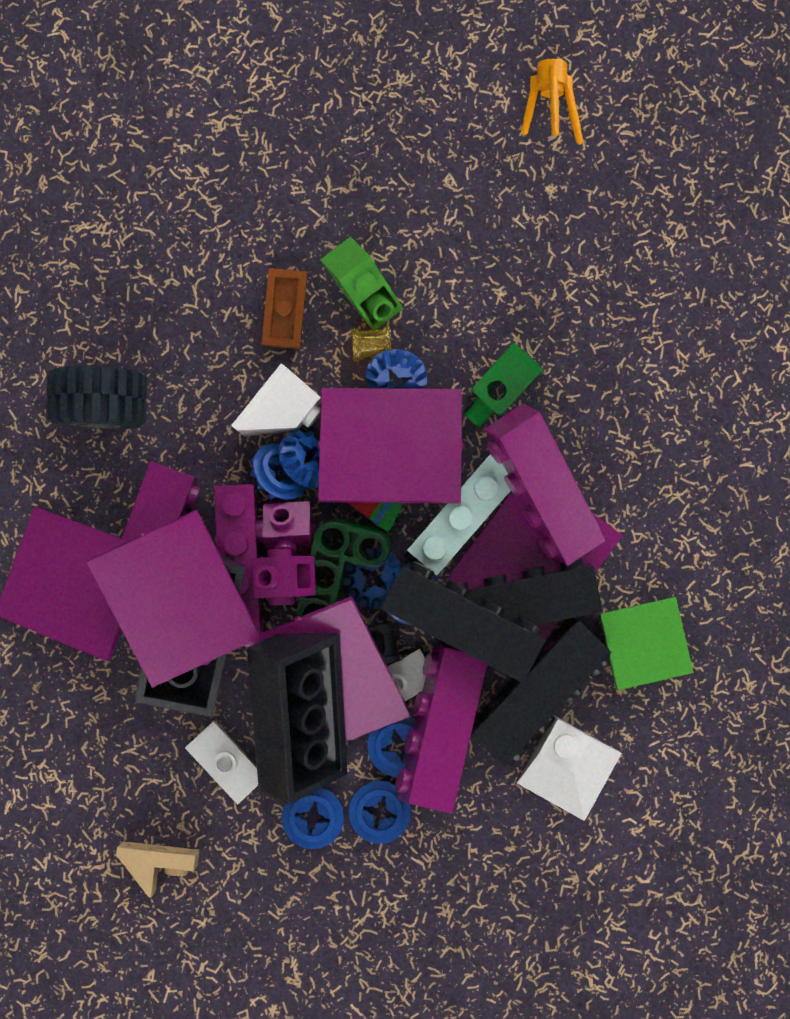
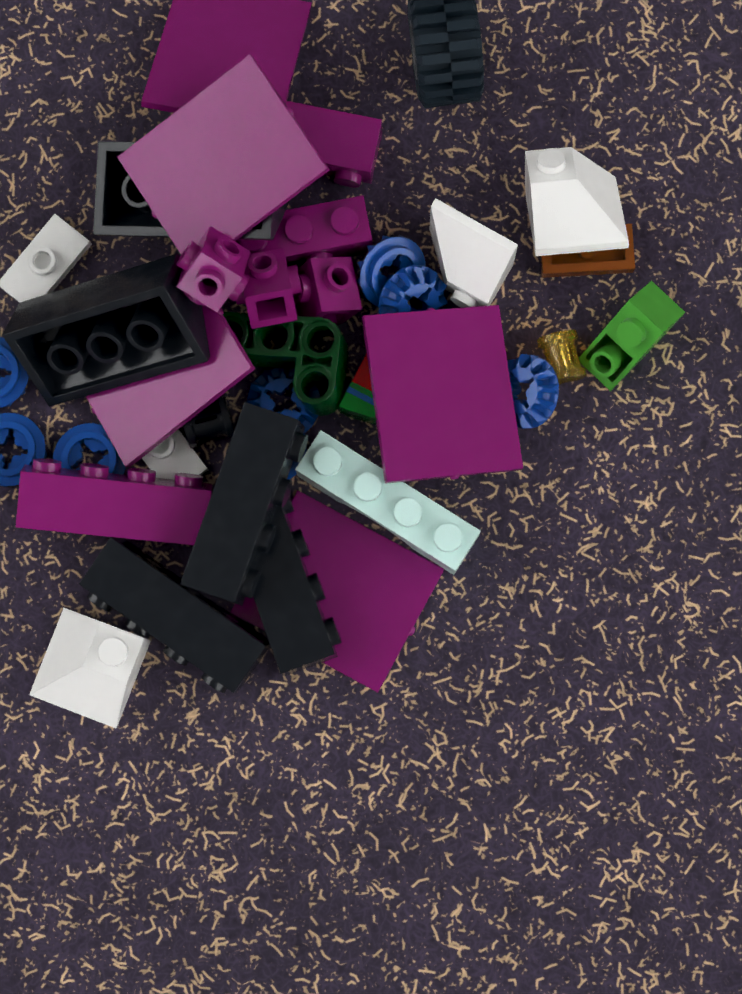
camera: 85 degrees right, 5 degrees down
(246, 314) = (572, 203): none -> white slope
(267, 618) = (213, 270): none -> magenta brick
(517, 373) = (552, 531): green torso -> none
(544, 484) = (422, 578): magenta brick -> none
(646, 643) = (251, 737): bright green tile -> none

